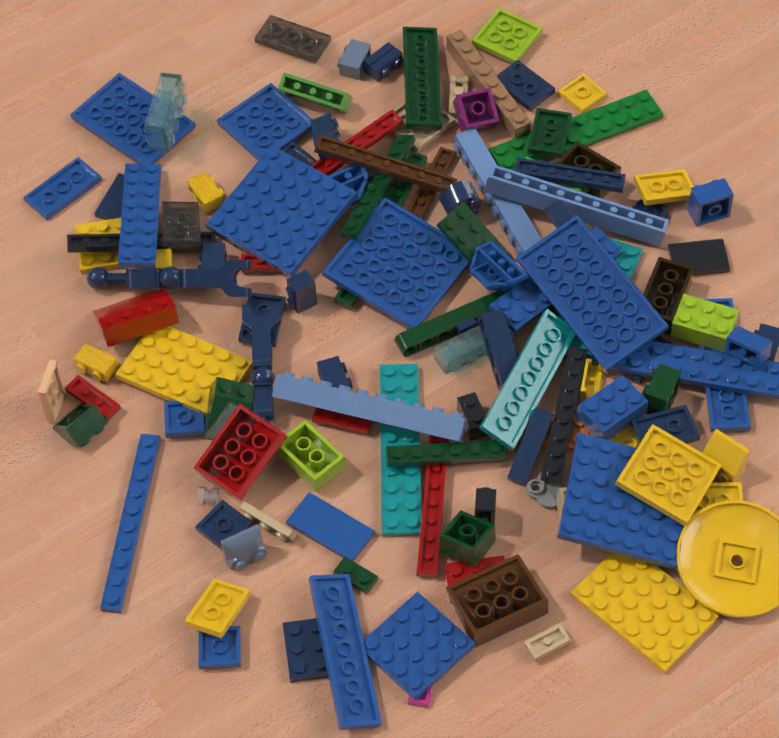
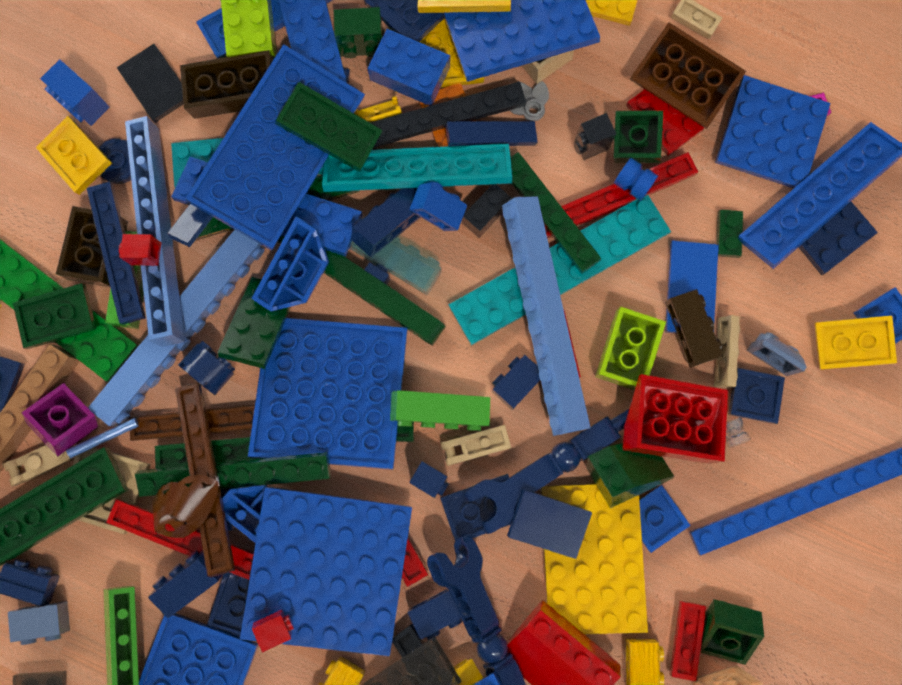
camera: 120 degrees left, 25 degrees up
(225, 343) = (549, 524): none -> dark blue tile
(264, 158) = (273, 630): none -> red brick
(298, 502) = (694, 328): none -> dark brown brick
(306, 336) = (477, 445): none -> tan plate
(344, 317) = (440, 409): none -> bright green brick
(371, 143) = (184, 505): none -> reddish brown piece
(435, 515) = (635, 179): none -> blue wheel
(450, 130) = (101, 438): none -> medium blue bar
(489, 376) = (438, 206): none -> blue brick
(558, 182) = (140, 249): none -> red brick
(587, 328) = (328, 126): none -> dark green plate

